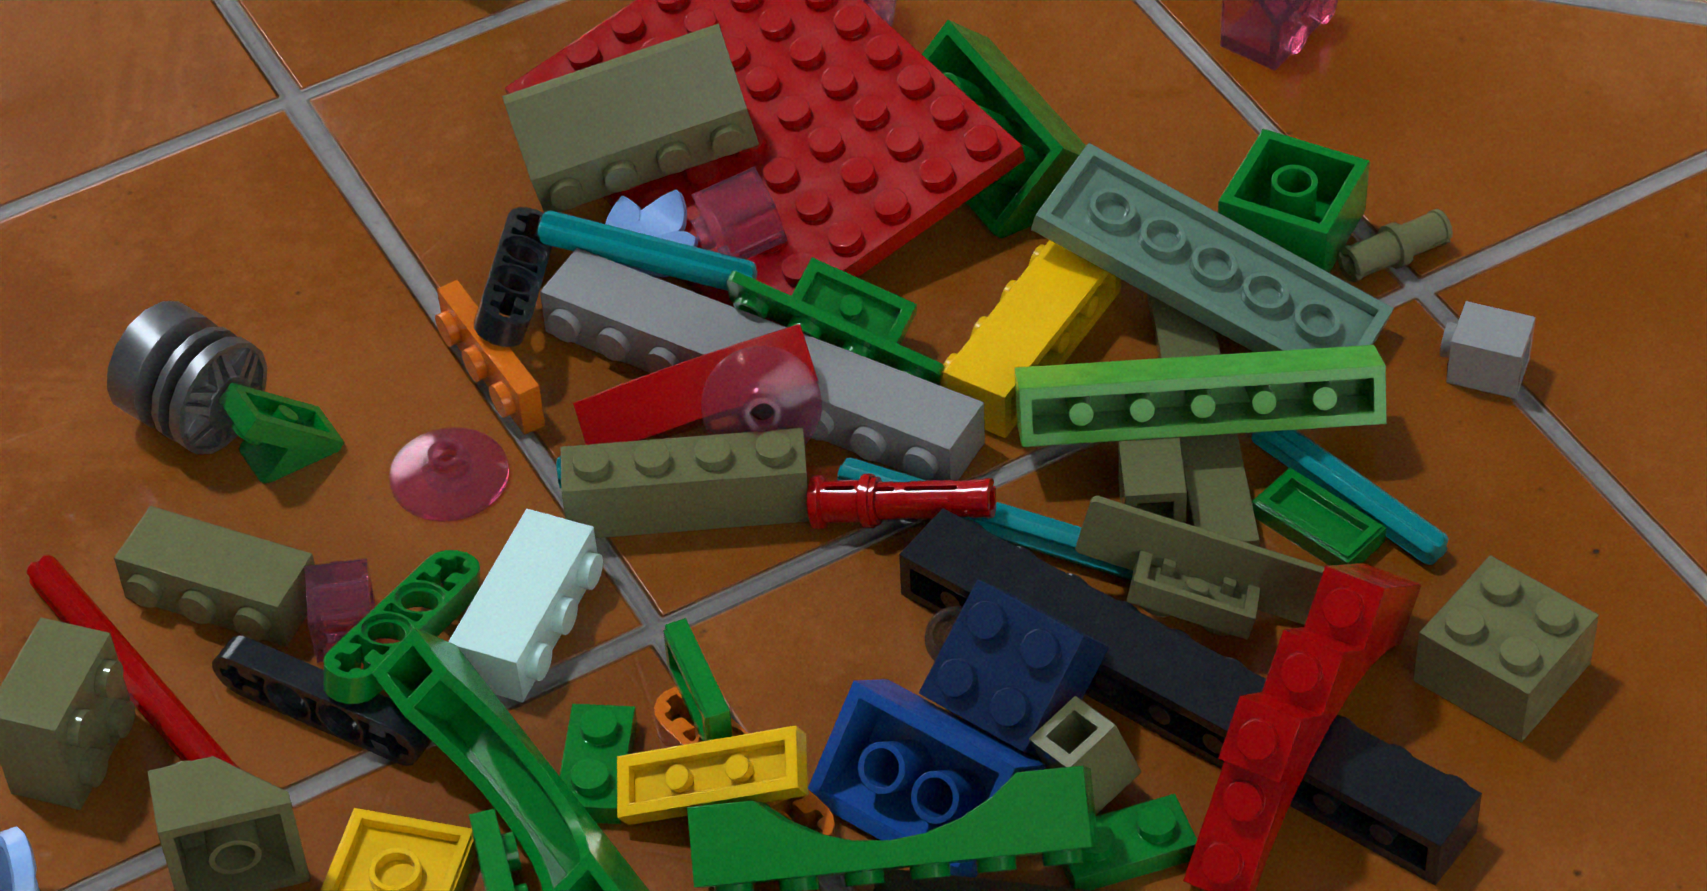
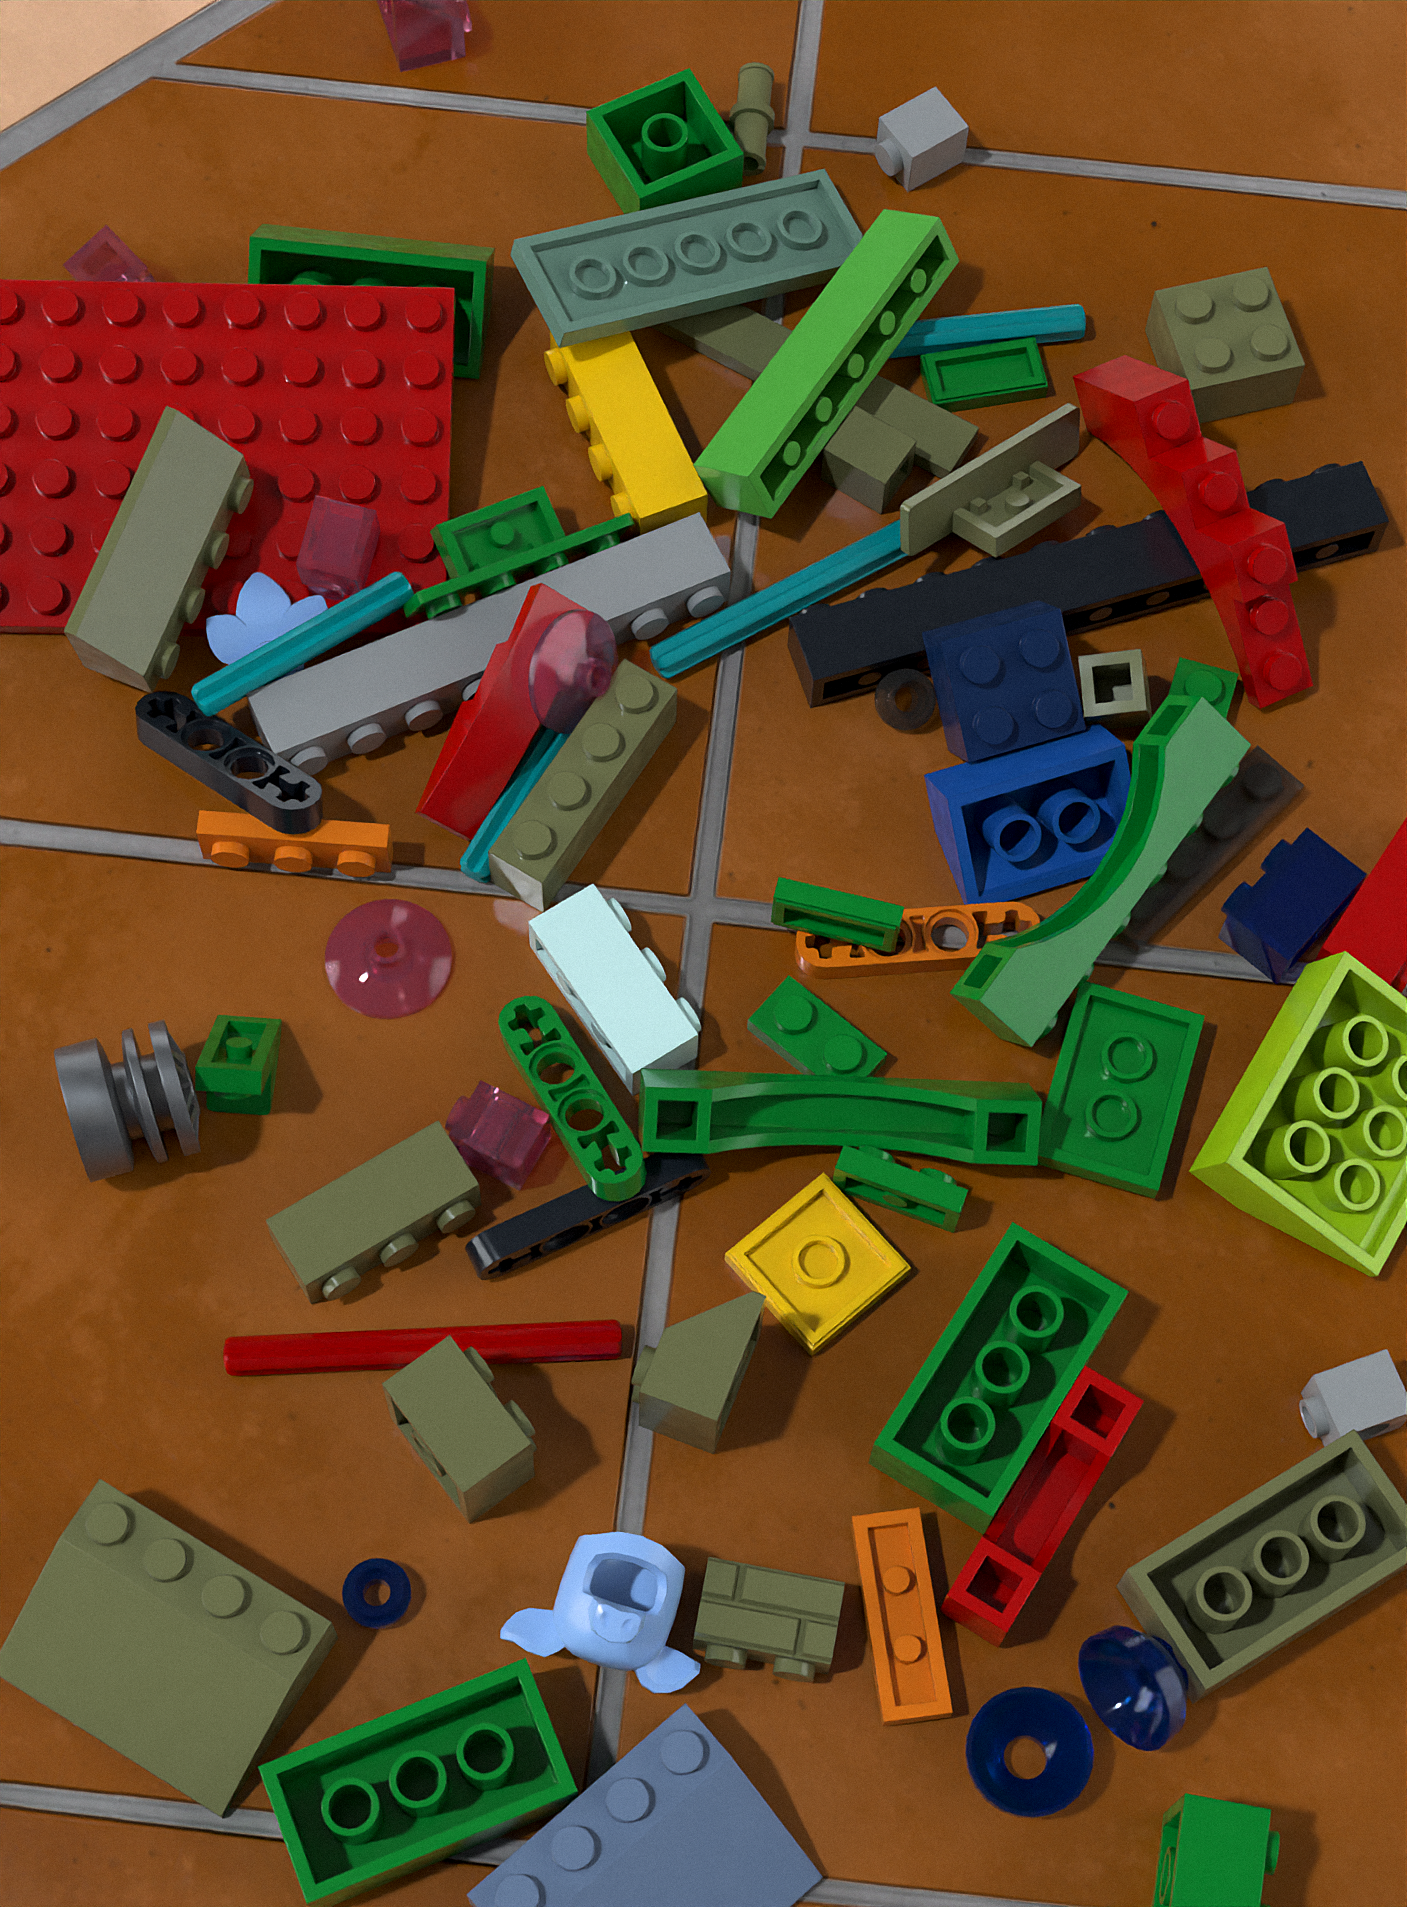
camera: 60 degrees left, 20 degrees up
(710, 772) = (929, 963): yellow plate -> none
(872, 501) = (720, 662): red pin -> none

